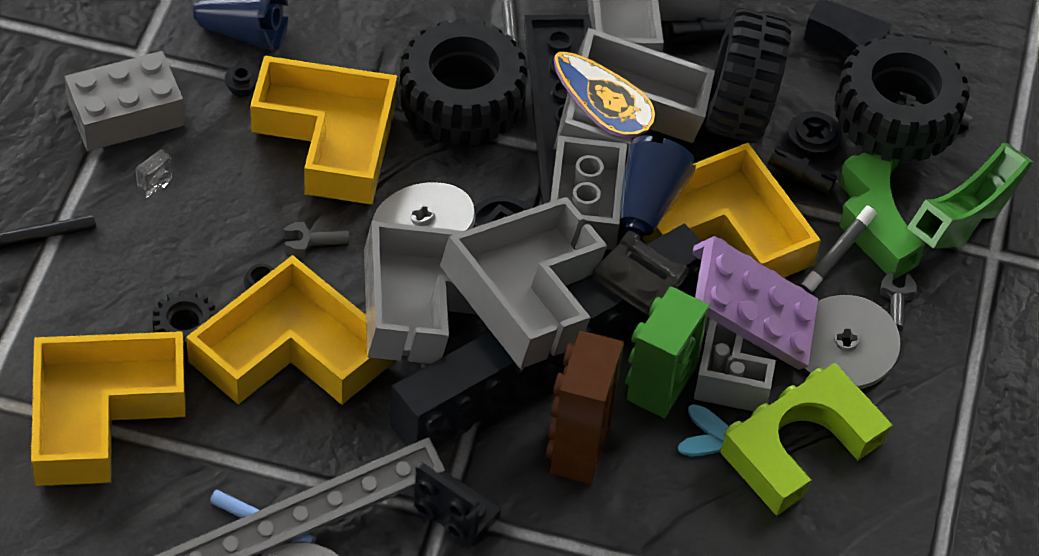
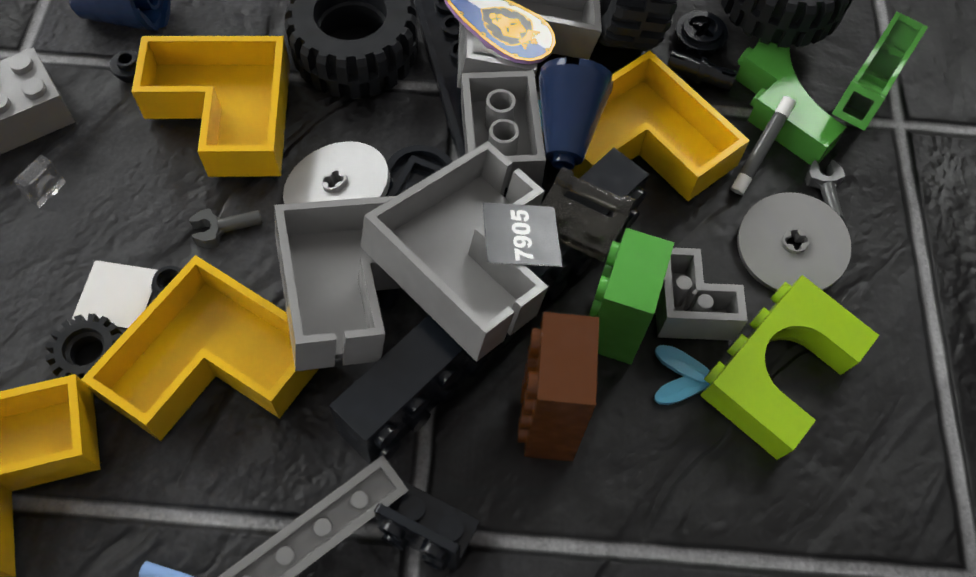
camera: 10 degrees left, 10 degrees up
(211, 277) = (116, 292): none -> white sticker
(577, 274) = (521, 234): none -> sticker
(756, 302) = (704, 221): lavender bracket -> none

